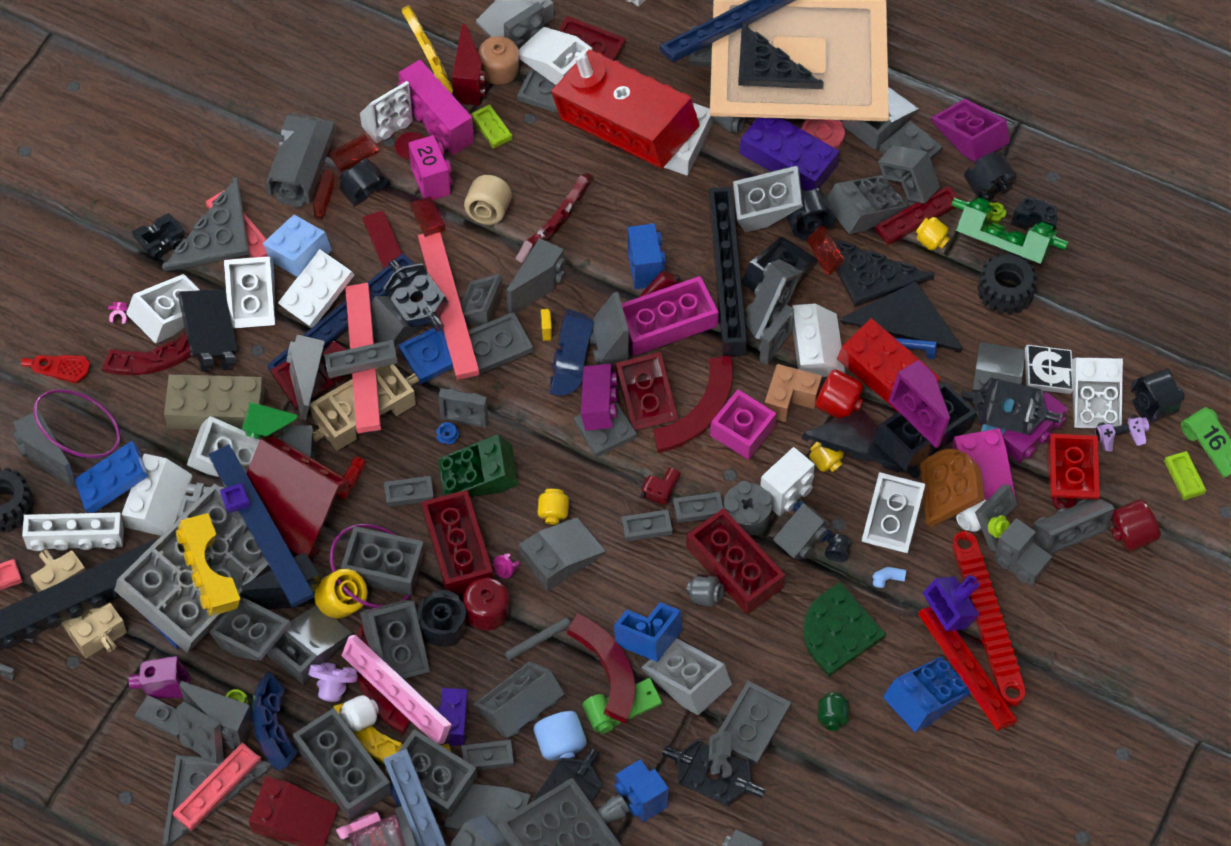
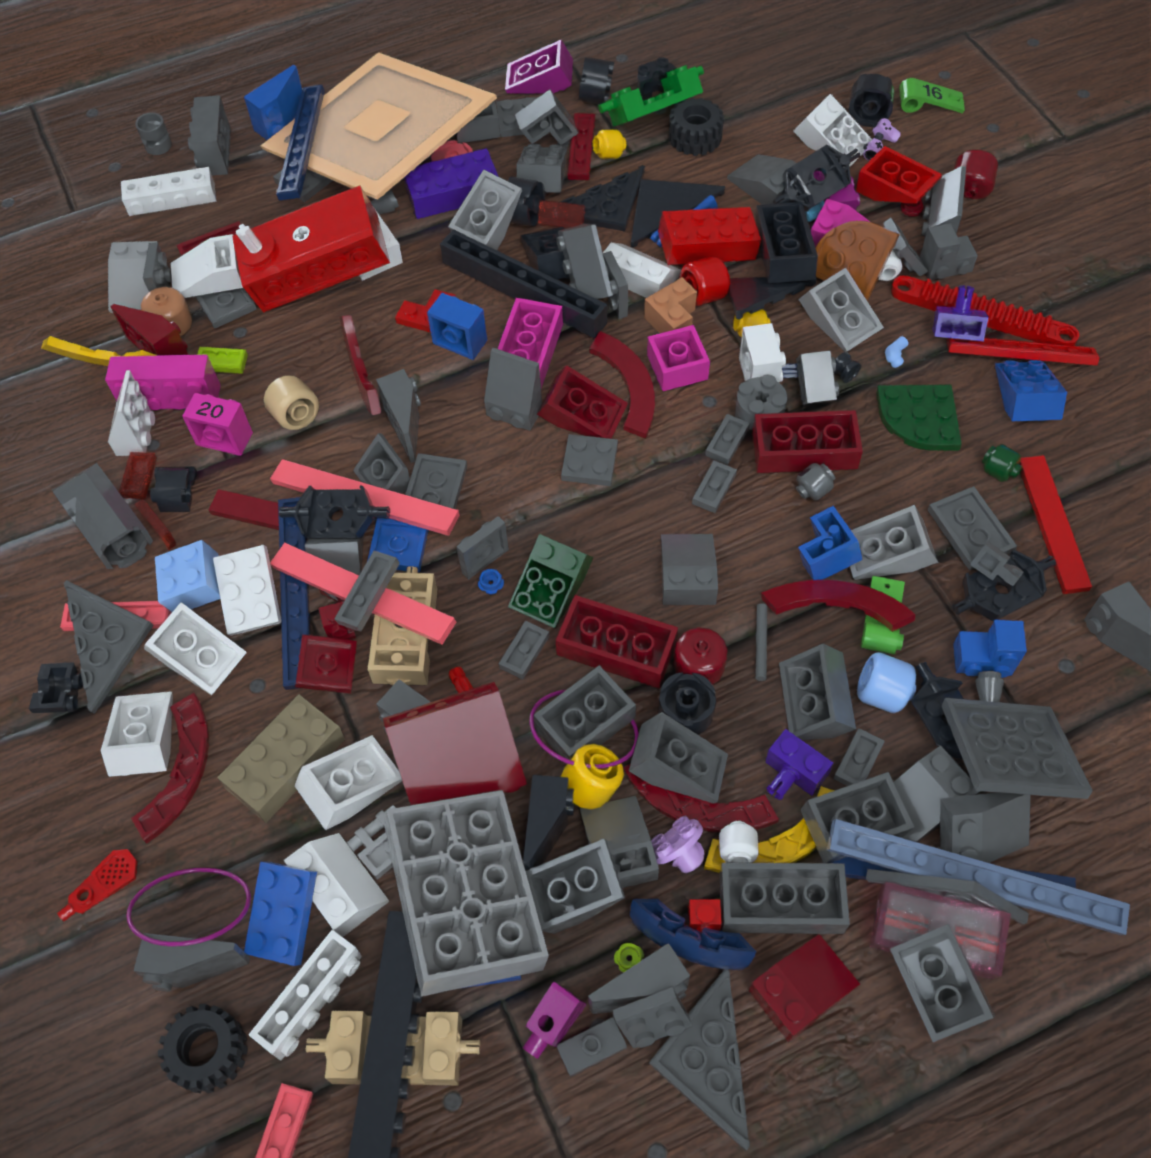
camera: 50 degrees left, 0 degrees up
(119, 308) = (96, 779): dark pink plate -> none
(208, 327) = (198, 709): black tile -> none
(217, 591) = (442, 869): yellow arch -> none
(217, 786) = (720, 1045): coral tile -> none
(234, 498) = (424, 799): dark purple tile -> none
(263, 529) = (471, 796): dark blue tile -> none
(264, 420) = (360, 717): green slope -> none
(292, 721) = (704, 914): none -> red brick
(304, 362) = (332, 652): light grey slope -> none
(358, 824) = (862, 922): bright pink plate -> none
(396, 690) = (743, 791): bright pink plate -> none
(402, 146) = (174, 430): dark red piece -> none
(427, 216) = (259, 459): clear red plate -> none
(504, 567) = (669, 616): dark pink plate -> none
(546, 324) = (452, 438): yellow tile -> none
(553, 506) = (638, 543): yellow head -> none
(569, 360) = (498, 438): dark blue brick -> none
(599, 397) = (564, 439): magenta brick -> none
(658, 489) = (684, 456): dark red piece -> none
(660, 282) = (493, 335): dark red piece -> none
(667, 227) = (416, 315): none -> red plate
(770, 66) = (370, 140): black tile -> none
(806, 780) = (1054, 525): none -> red tile
(921, 401) = (784, 215): magenta slope -> none
(997, 526) = (919, 248): lime plate -> none
(1049, 369) = (788, 146): tile -> none
(1185, 475) = (947, 128): lime plate -> none

